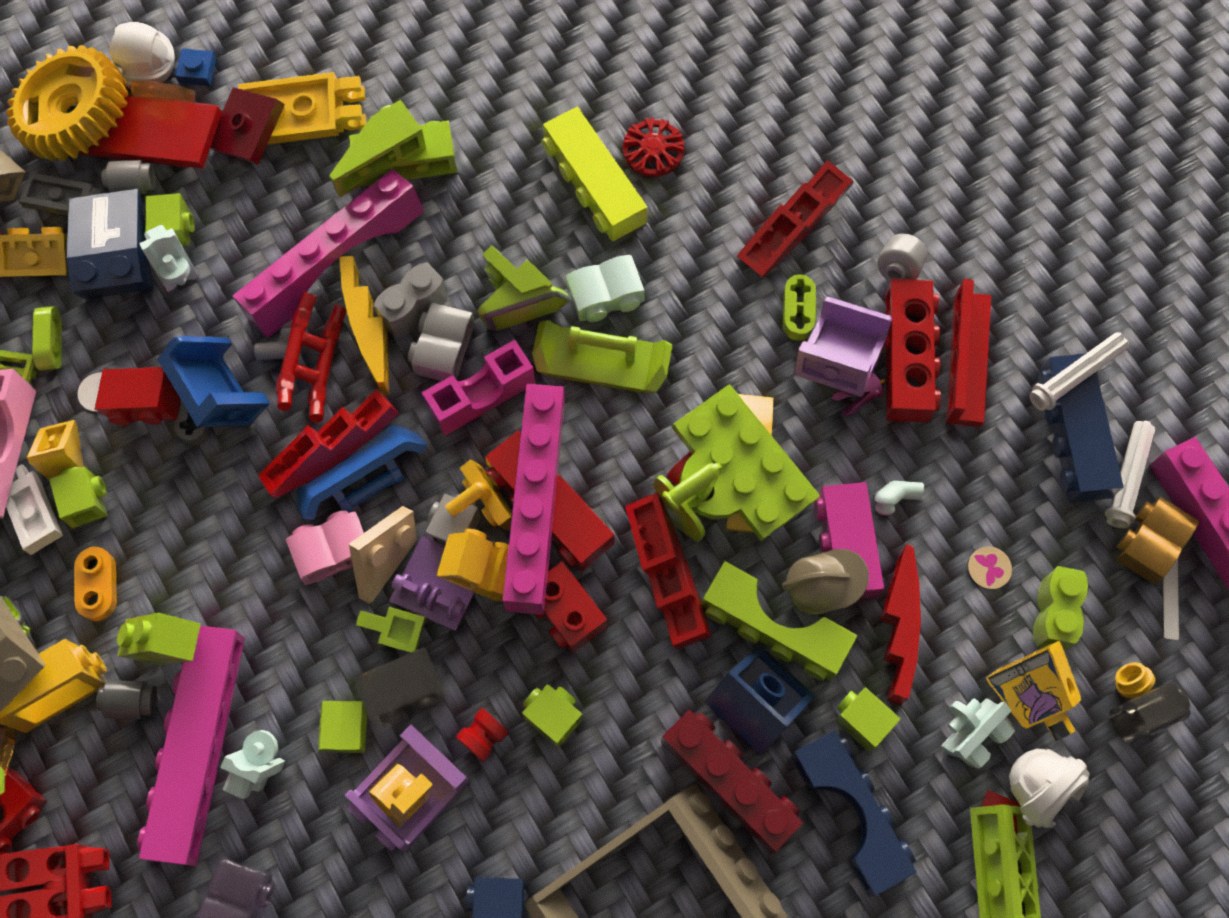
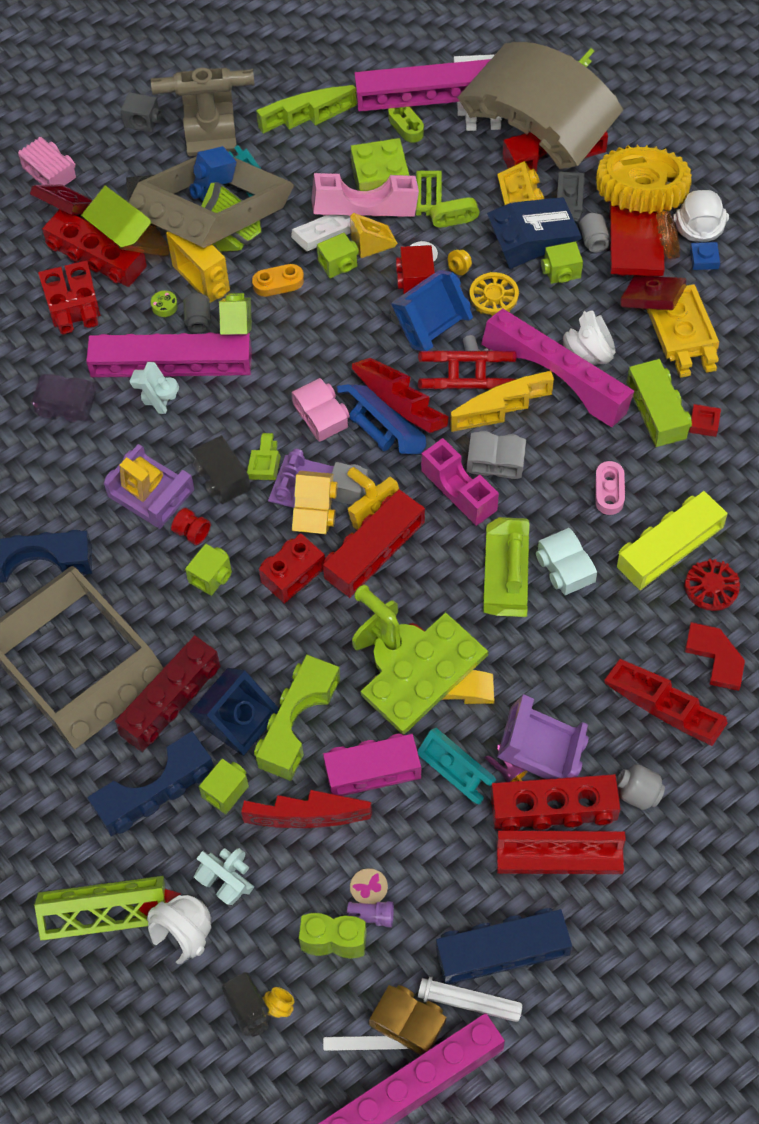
camera: 85 degrees right, 10 degrees down
(95, 748) = (164, 303): none -> lime tile
(132, 343) = (459, 262): none -> yellow plate
(168, 257) = (527, 267): light aqua hips -> none
(191, 310) = (493, 293): none -> yellow wheel
(307, 206) = (592, 341): none -> white helmet
(342, 727) = (186, 438): lime piece -> none
(381, 551) = (320, 440): tan wing -> none
(382, 143) = (650, 376): lime slope -> none
(405, 302) = (520, 419): light grey brick -> none
(433, 109) = (705, 420): none -> red tile
(513, 224) = (609, 490): none -> bright pink plate
(519, 294) = (545, 493): lime piece -> none
(534, 500) = (365, 519): dark pink brick -> none
(667, 570) = (323, 636): red slope -> none
(750, 151) = (713, 643): none -> red tile
(792, 307) = (582, 711): lime beam -> none
(827, 581) = (331, 741): dark tan piece -> none
(855, 448) = (454, 764): none -> teal hinge
(894, 492) = (425, 803): light aqua arm -> none
(1029, 564) = (379, 913): none -> medium lavender pin
(1039, 689) = (259, 916): torso -> none
(1045, 395) = (548, 930): white axle -> none

